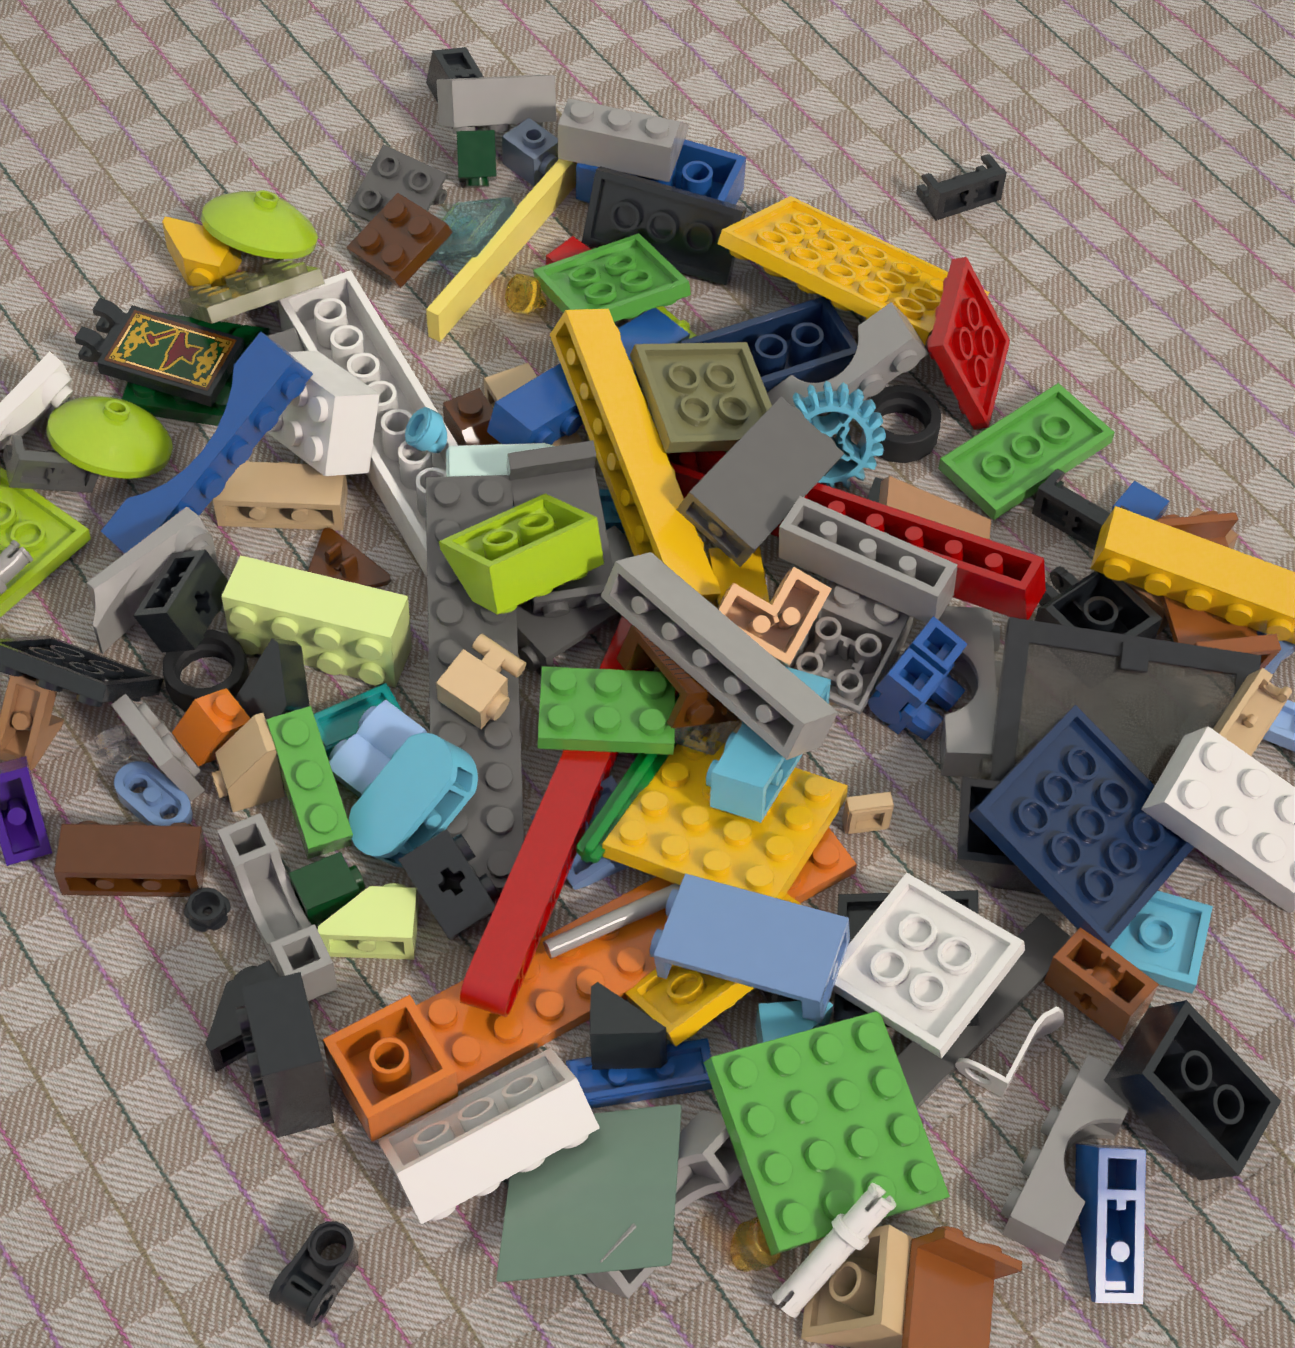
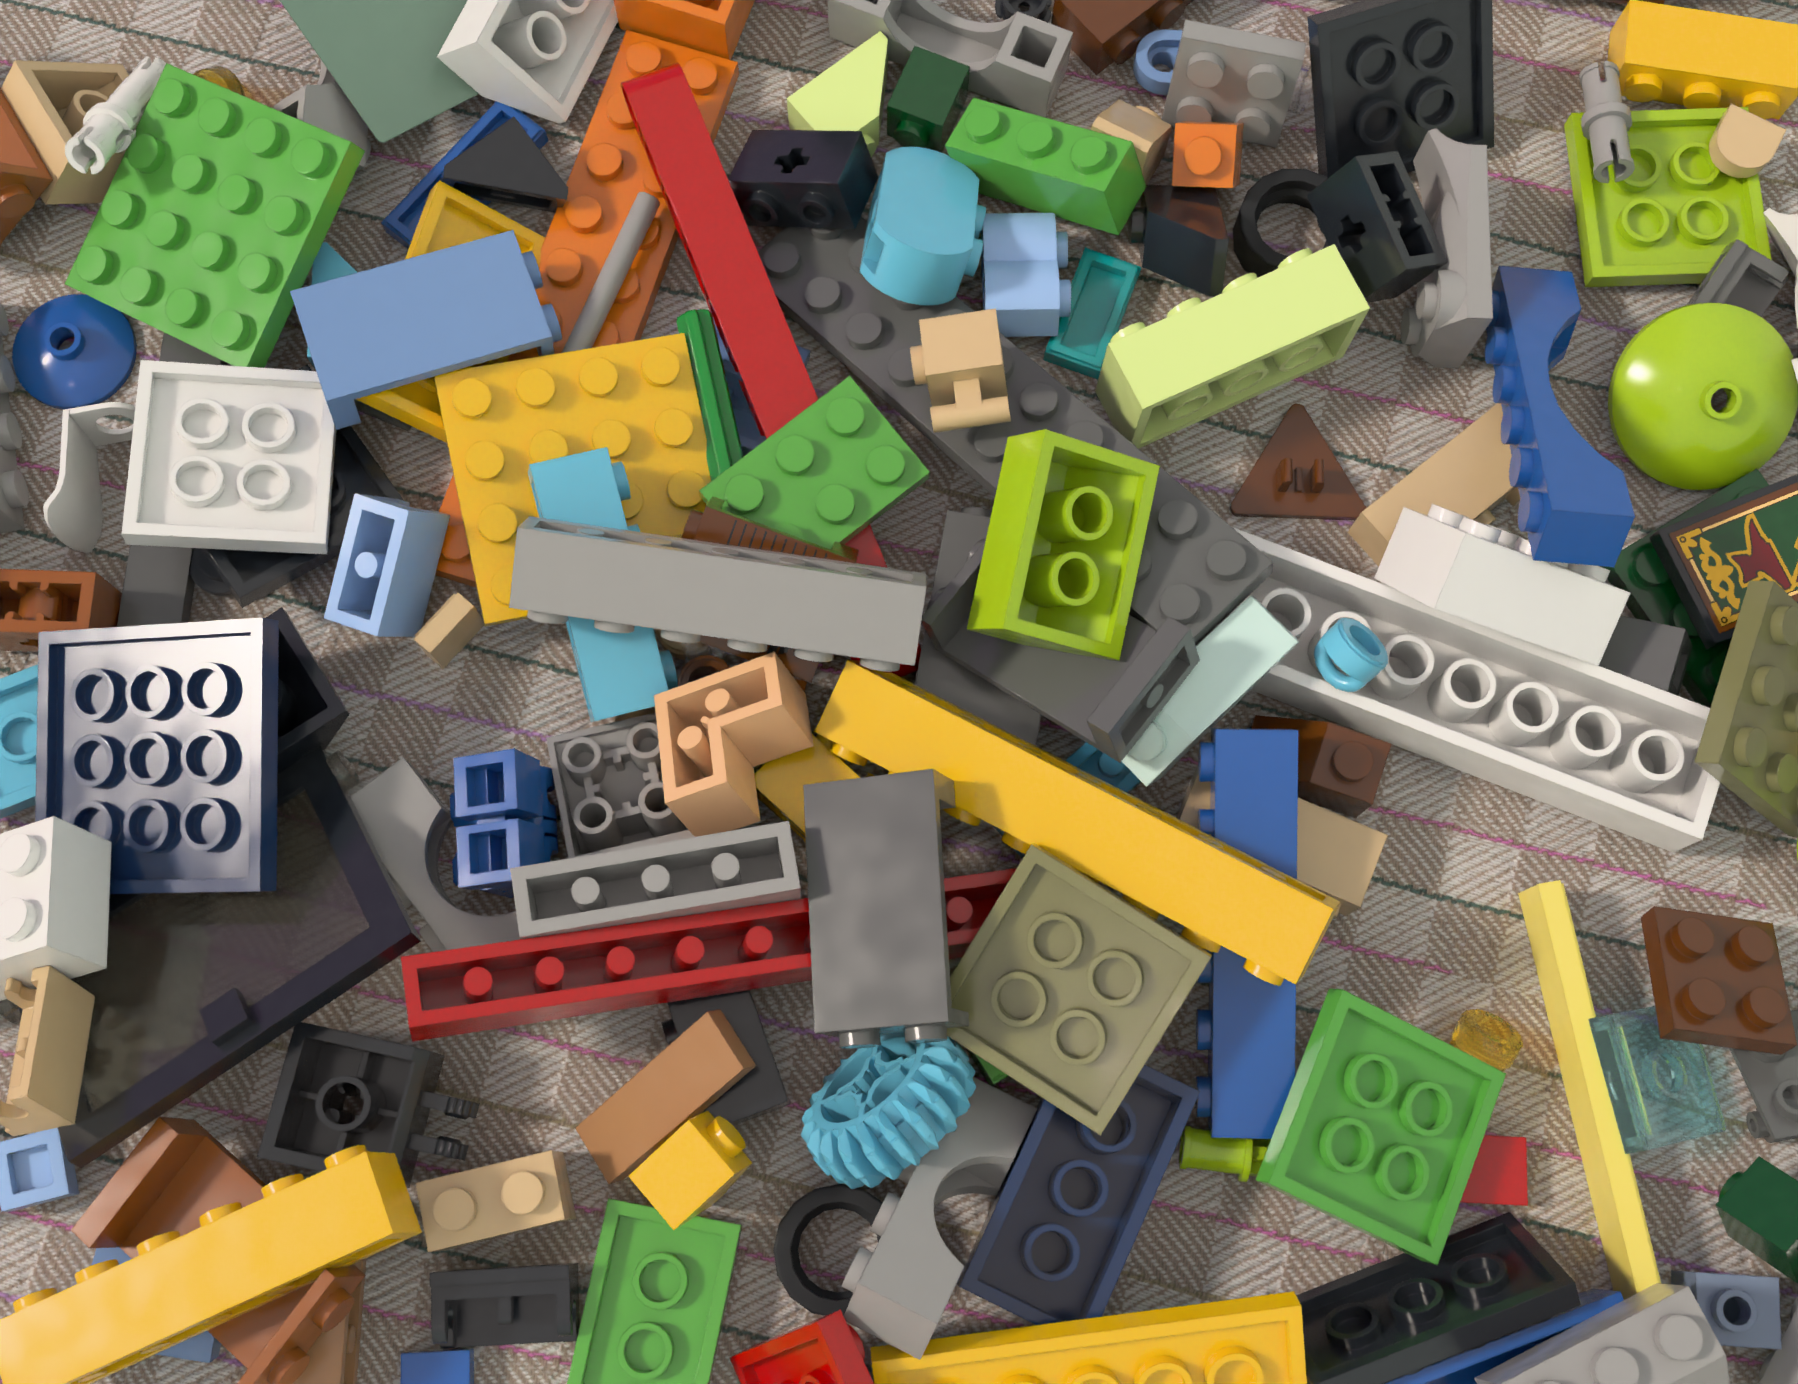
camera: 140 degrees right, 20 degrees up
(870, 853) = (386, 566): none -> light blue brick
(948, 466) = (692, 1168): none -> yellow slope
(973, 1181) = (88, 369): none -> blue dish
(1055, 538) = (495, 1201): none -> tan brick

